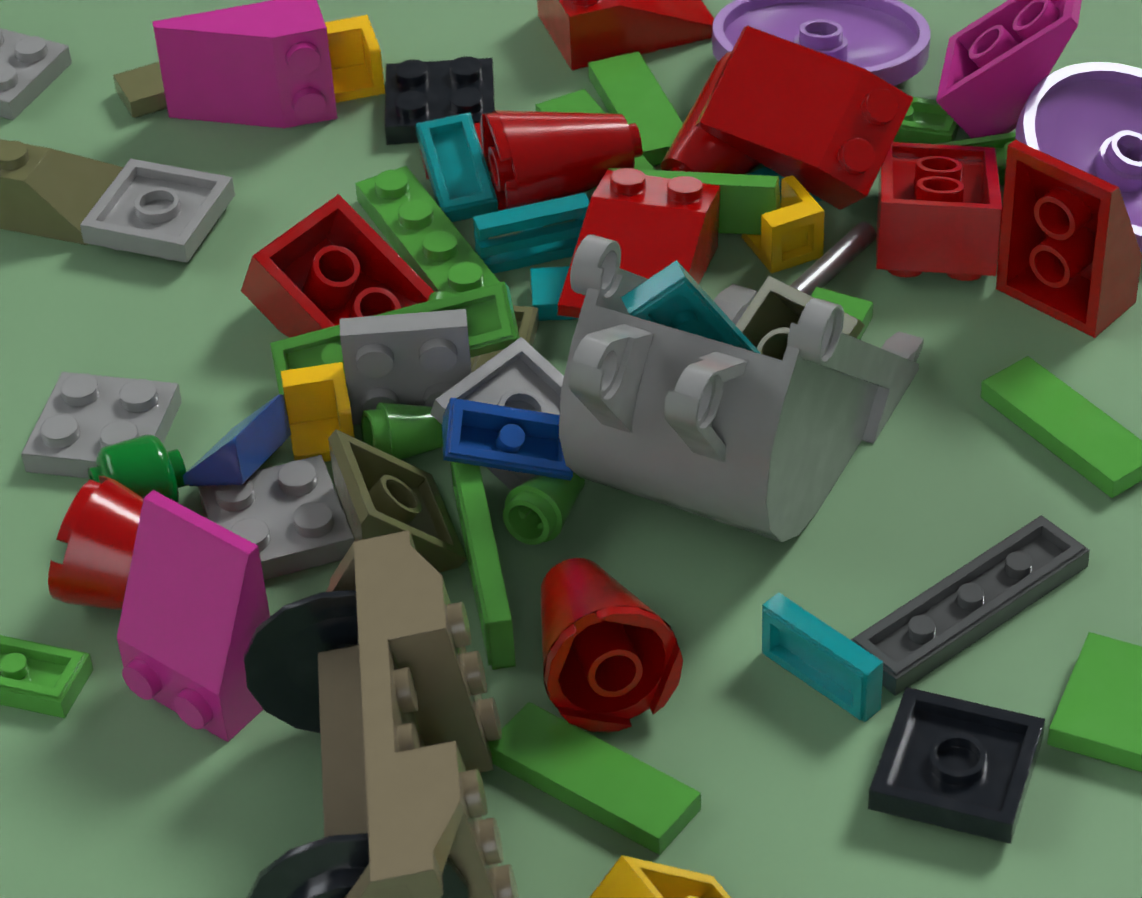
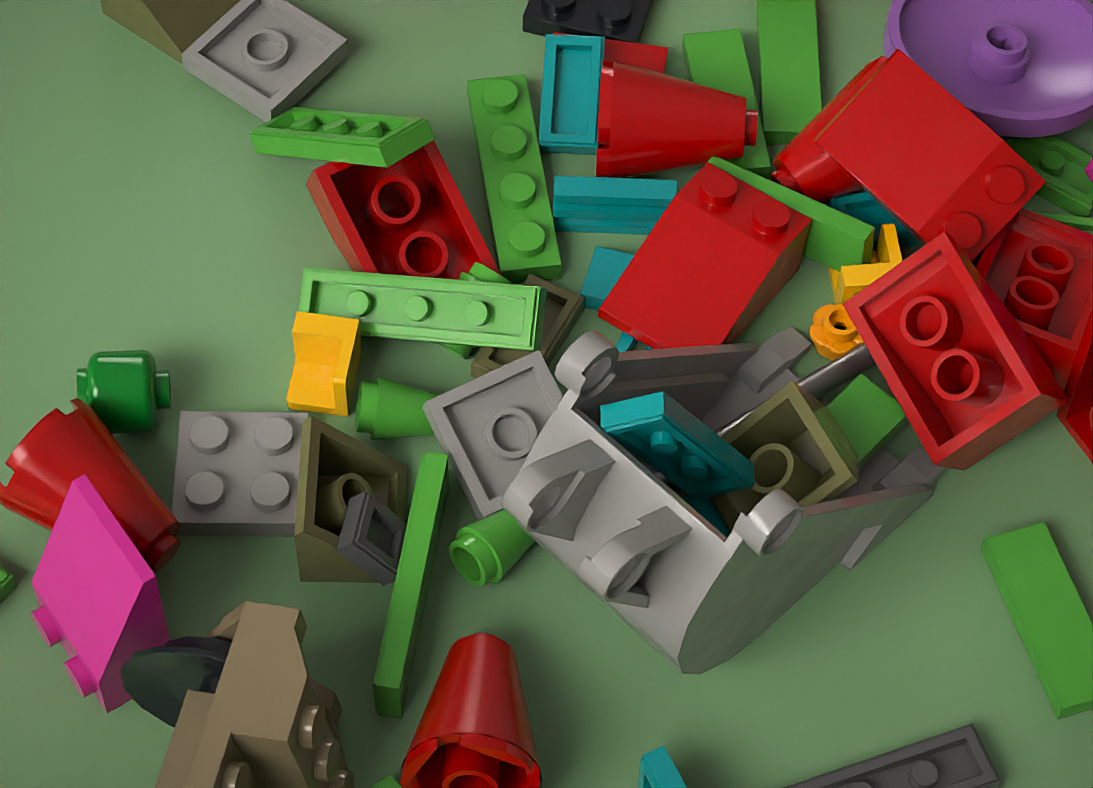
camera: 15 degrees right, 15 degrees up
(93, 413) = (120, 300): light grey plate -> none
(243, 447) = (233, 385): blue slope -> none
(266, 226) = (342, 136): none -> bright green tile
(403, 357) = (415, 343): light grey plate -> none
(432, 520) = (372, 537): none -> dark grey tile
(503, 438) = (464, 470): blue slope -> none
(778, 264) = (829, 340): none -> light orange plate
(894, 240) = (953, 355): none -> red slope

